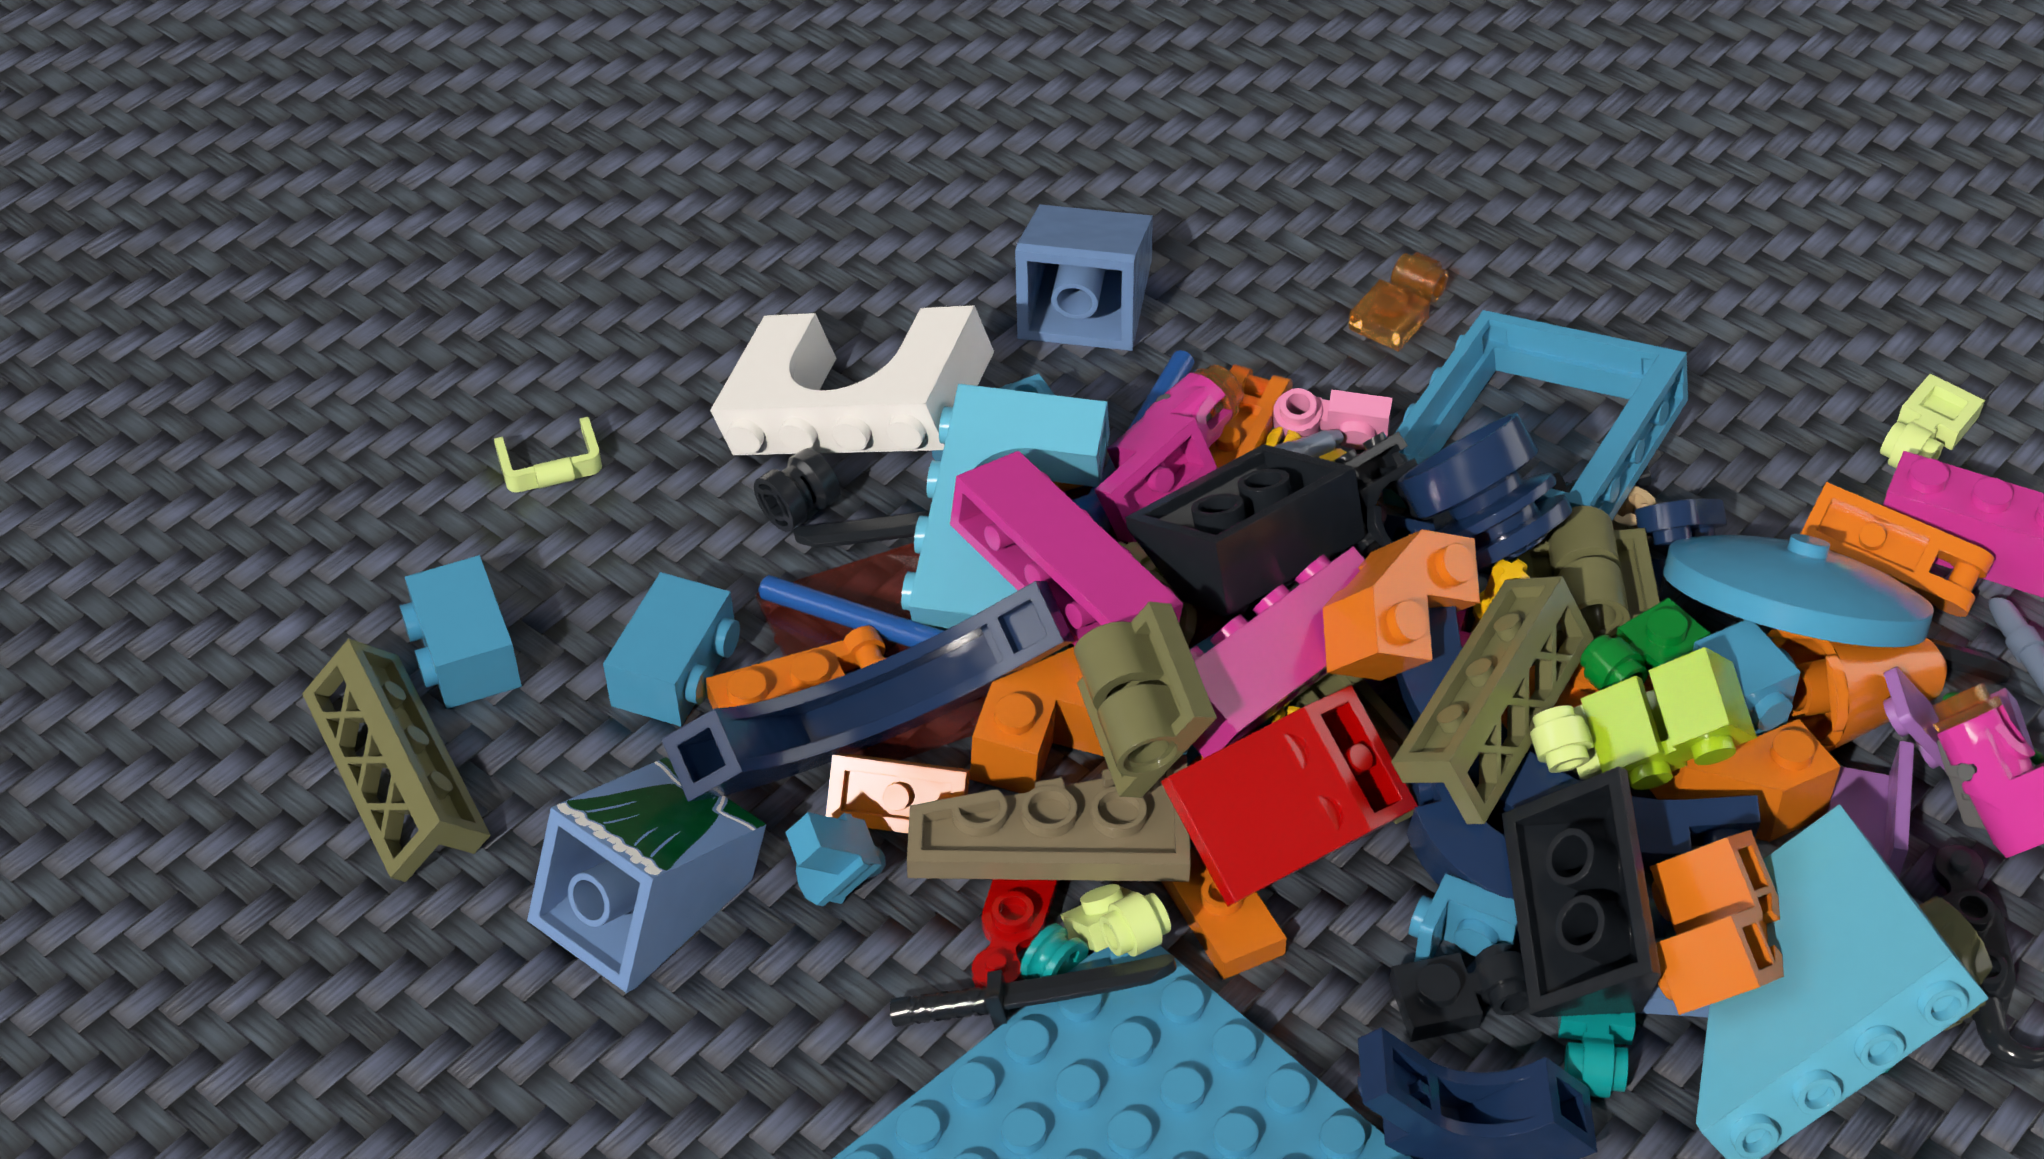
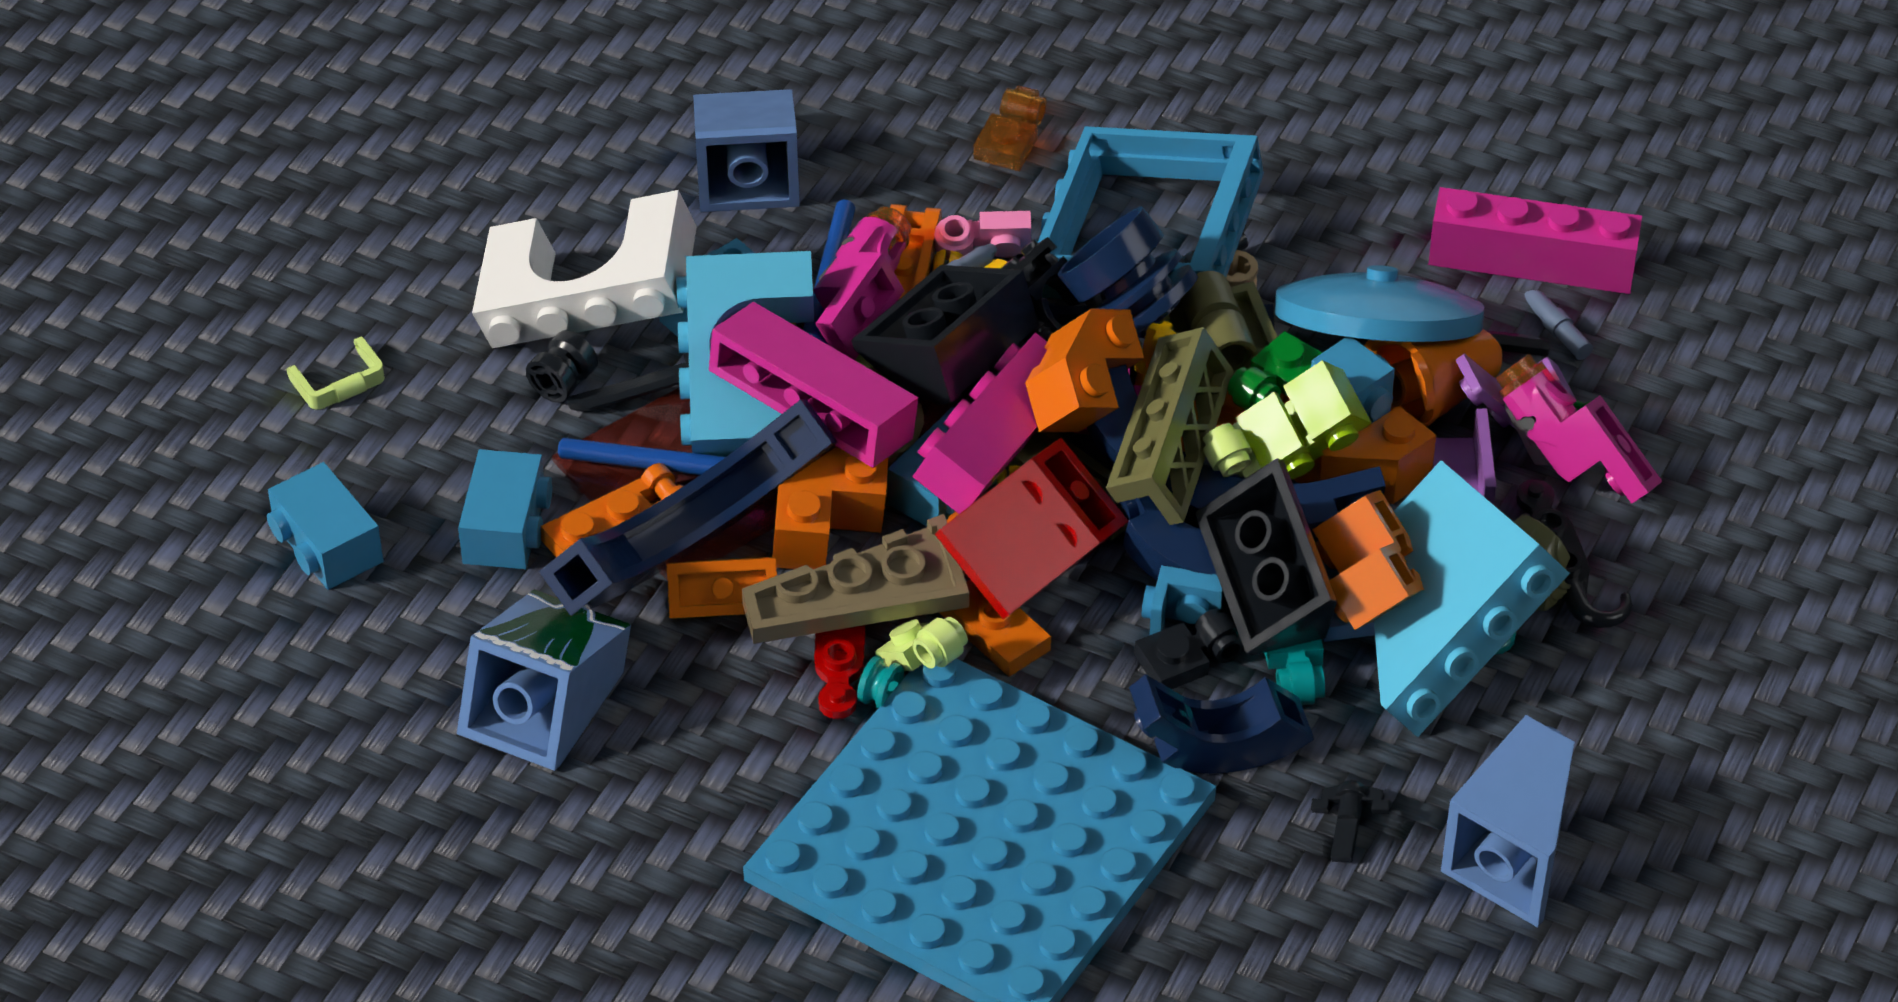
camera: 15 degrees left, 0 degrees up
(404, 742) = (316, 620): olive fence -> none
(833, 856) = (687, 640): dark azure piece -> none
(1001, 996) = (848, 716): black sword -> none
(1142, 695) = (906, 472): olive plate -> none
(1681, 519) = (1279, 270): dark blue plate -> none
(1899, 547) = (1449, 263): orange plate -> none
(1931, 418) = (1456, 158): yellowish green plate -> none

